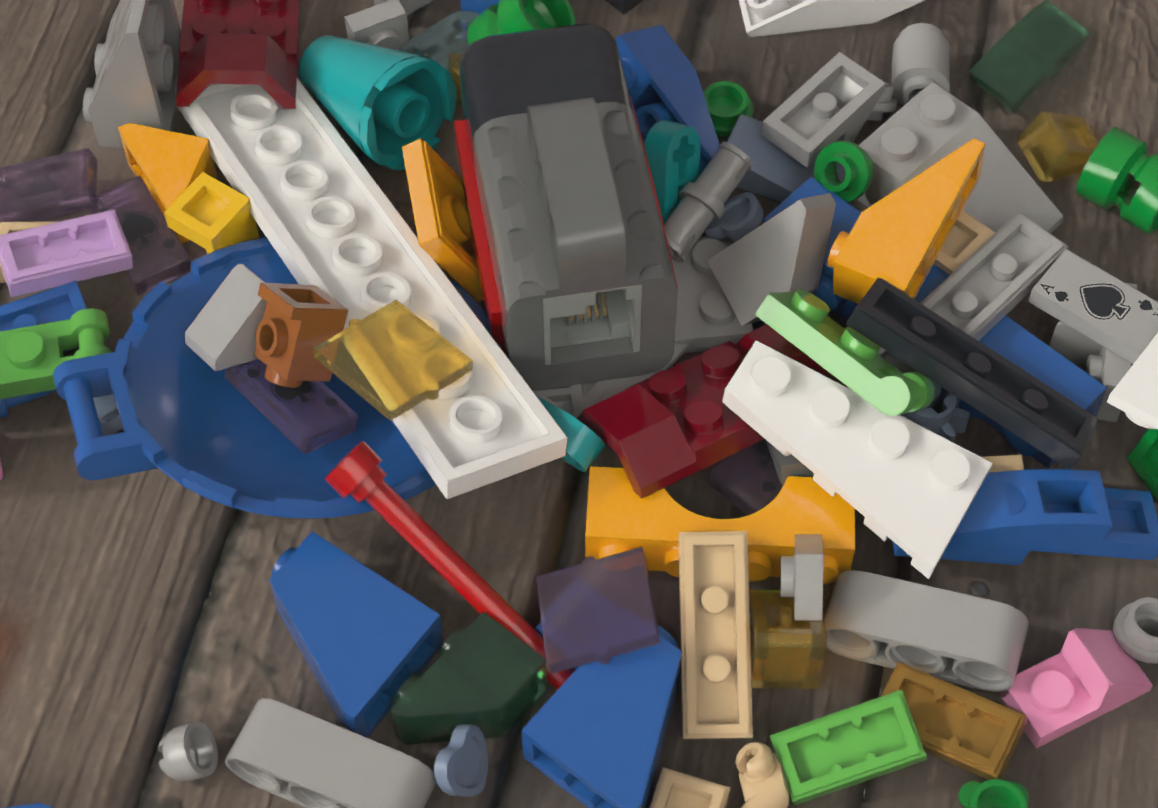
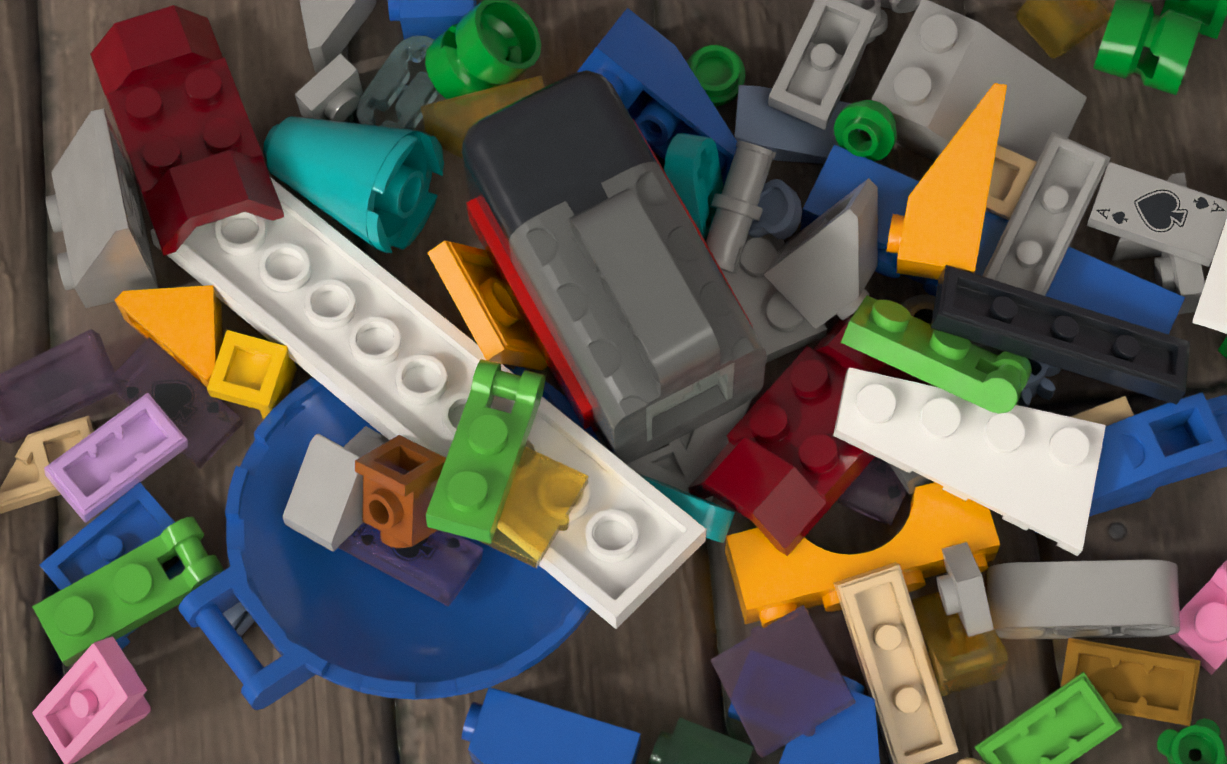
camera: 15 degrees left, 15 degrees up
(363, 479) = (529, 635): red piece -> none
(383, 311) = (485, 453): none -> bright green plate

